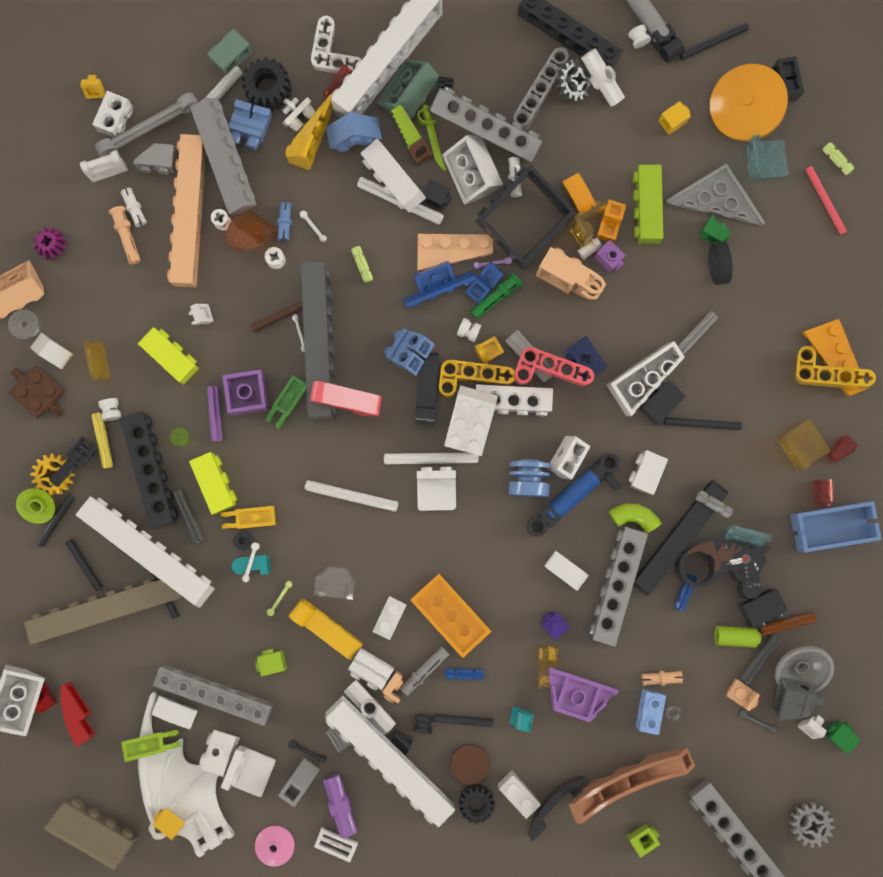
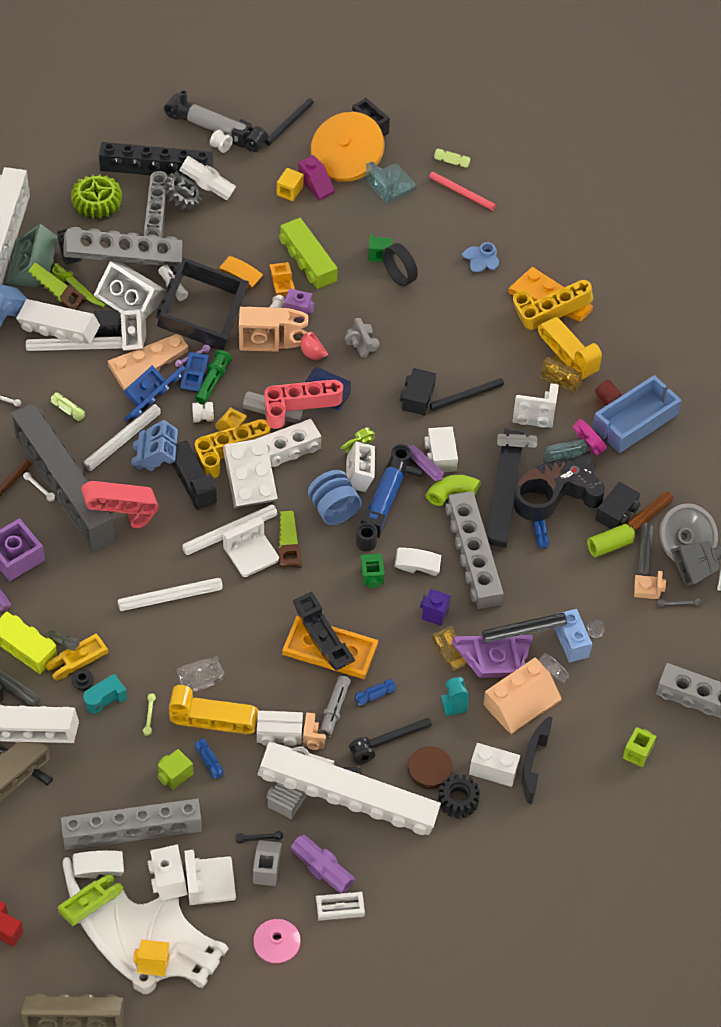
camera: 30 degrees left, 30 degrees down
(242, 498) = (63, 640): none -> dark grey axle
(255, 546) = (99, 670): white hinge -> none
(287, 400) = (59, 542): bright green hinge -> none
(304, 664) = (209, 758): none -> blue axle
(389, 618) = (271, 679): white plate -> none
(390, 319) = (122, 437): none -> white axle
(448, 607) = (321, 632): none -> black slope
(453, 215) = (133, 329): none -> white slope
(474, 493) = (288, 541): none -> piece
(510, 52) = (107, 200): none -> lime gear
(528, 557) = (372, 570): none -> green brick
(577, 743) = (522, 696): none -> light nougat slope
(581, 227) = (260, 285): clear yellow bracket -> none
(585, 433) = (364, 436): none -> lime plate
(597, 310) = (312, 347): none -> coral hair
(612, 692) = (524, 627): none -> black axle
(617, 735) = (554, 667): none -> clear piece
(624, 482) = (426, 464): none -> medium lavender axle
(628, 779) = (571, 717): nougat arch -> none
(640, 380) = (386, 381): white wedge -> none
(642, 320) = (360, 338): none -> light grey hips
(661, 678) = (566, 605): light nougat pin -> none
(697, 332) = (414, 330): light grey axle -> none
(701, 122) = (316, 177): none -> magenta slope
(720, 196) = (364, 220): light grey tile -> none
(758, 485) = (536, 410): none -> white bracket
(778, 521) = (585, 432): none -> dark pink tile
(798, 287) = (482, 257): none -> medium blue plate
(818, 429) = (569, 348): none -> yellow beam
(842, 449) = (607, 355): clear red cone -> none

